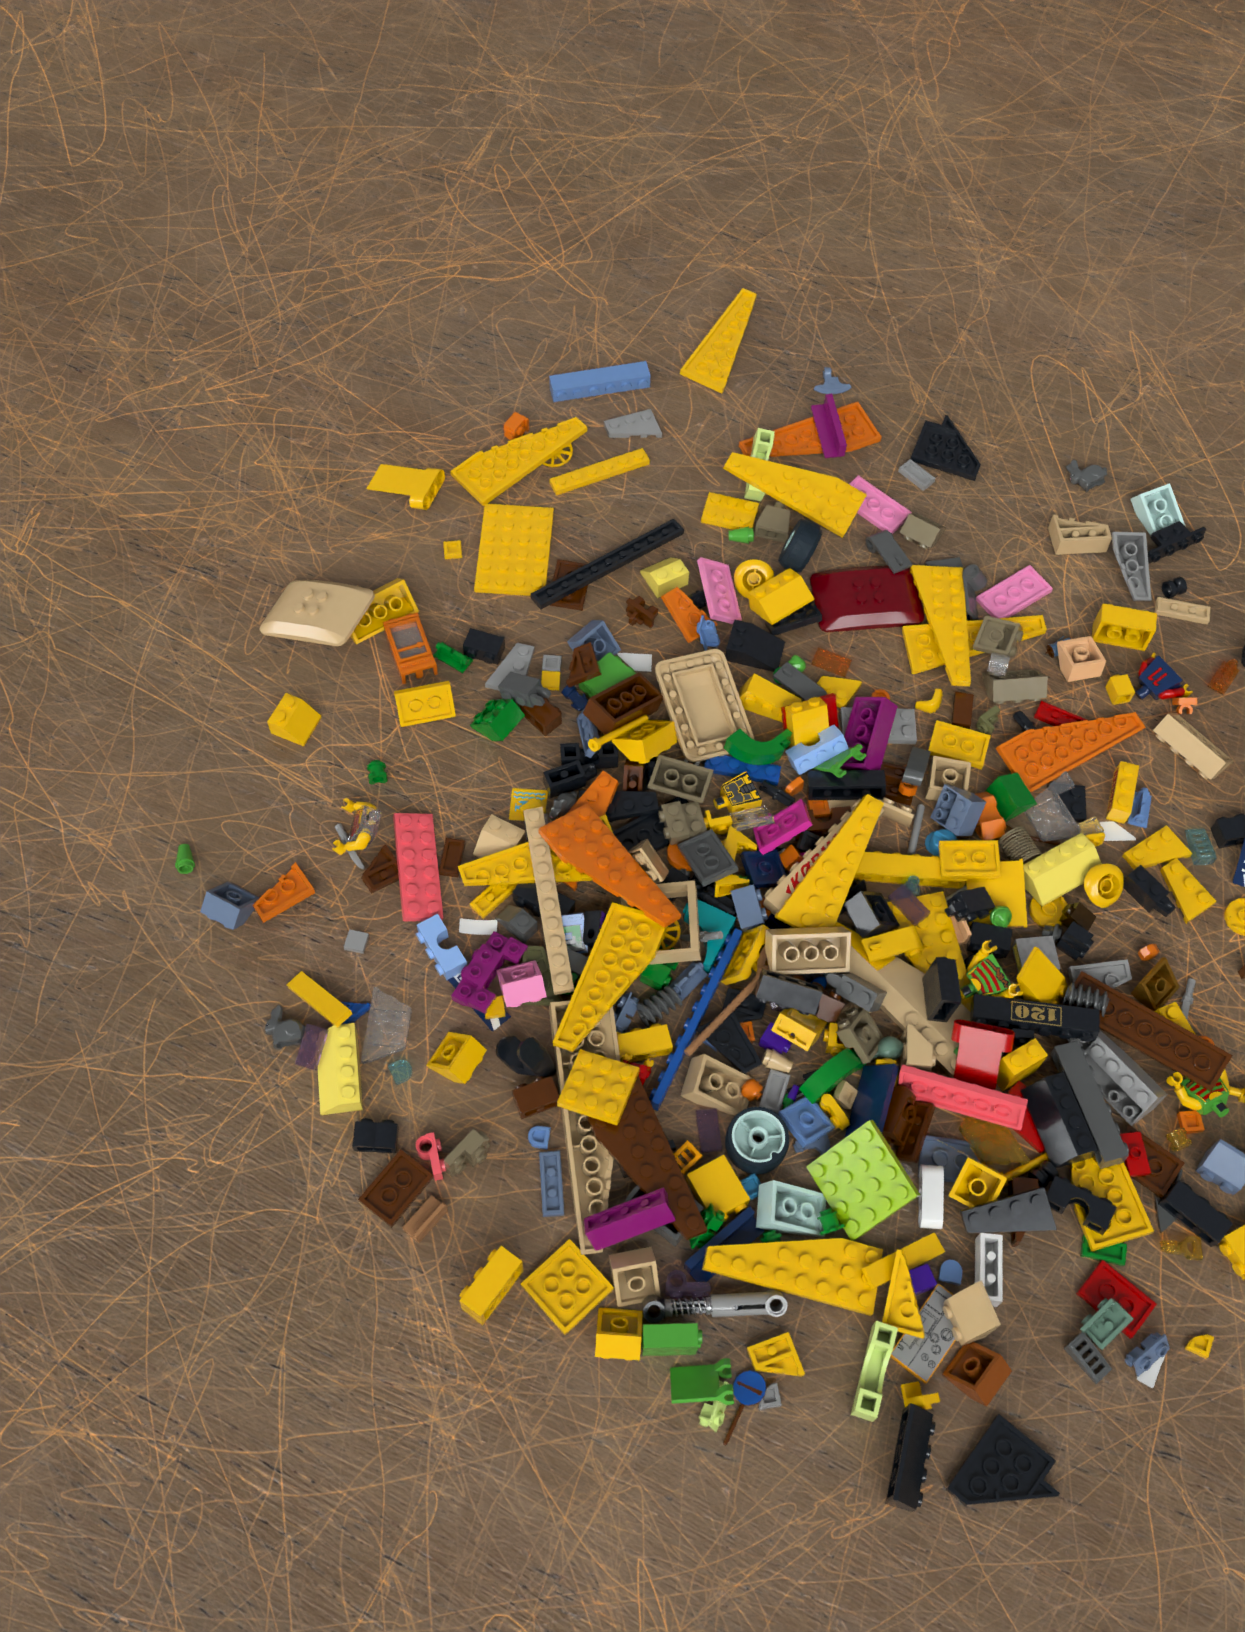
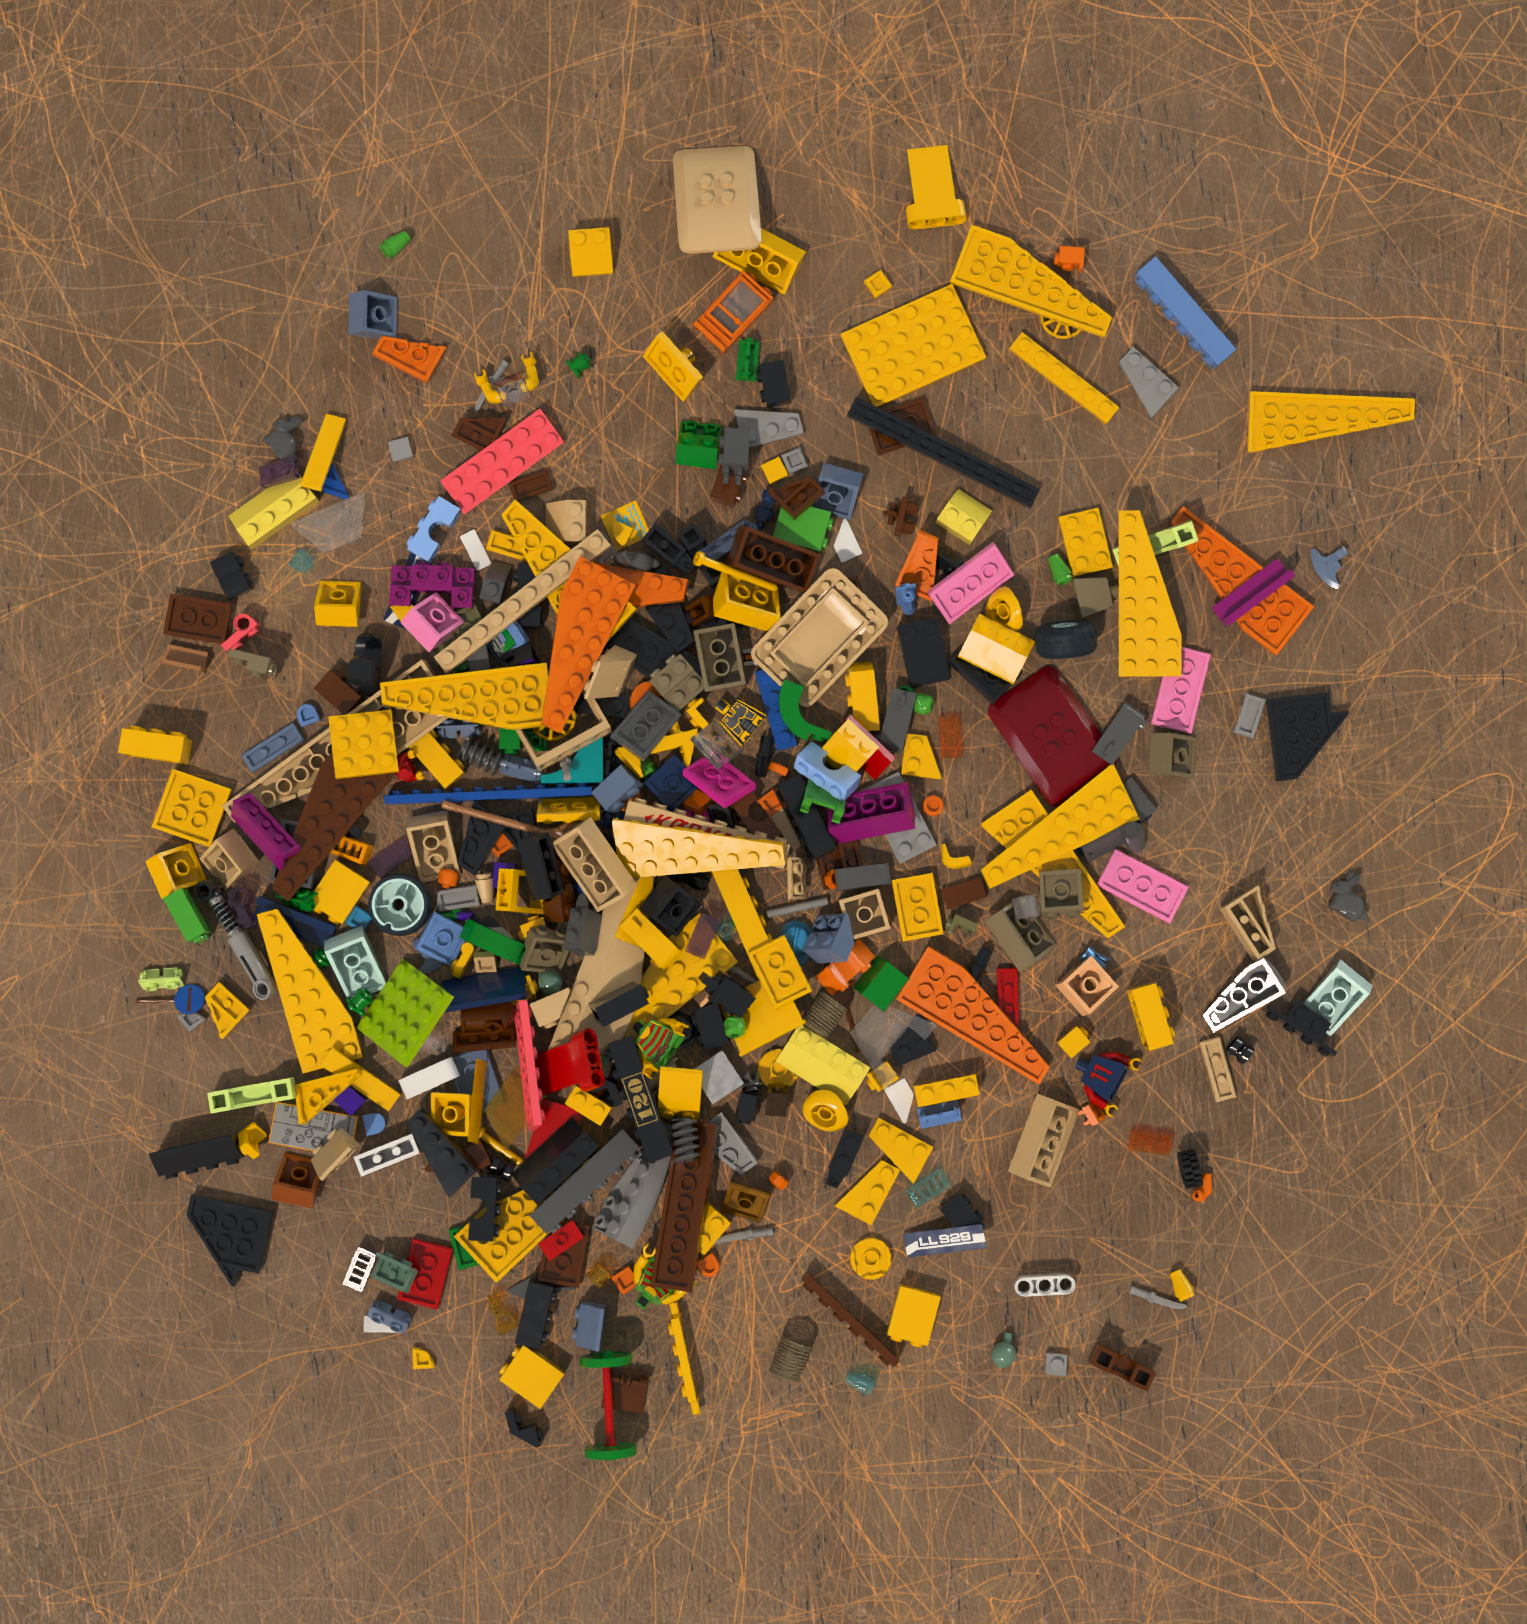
camera: 65 degrees right, 25 degrees up
(701, 1383) = (168, 956): bright green flag -> none

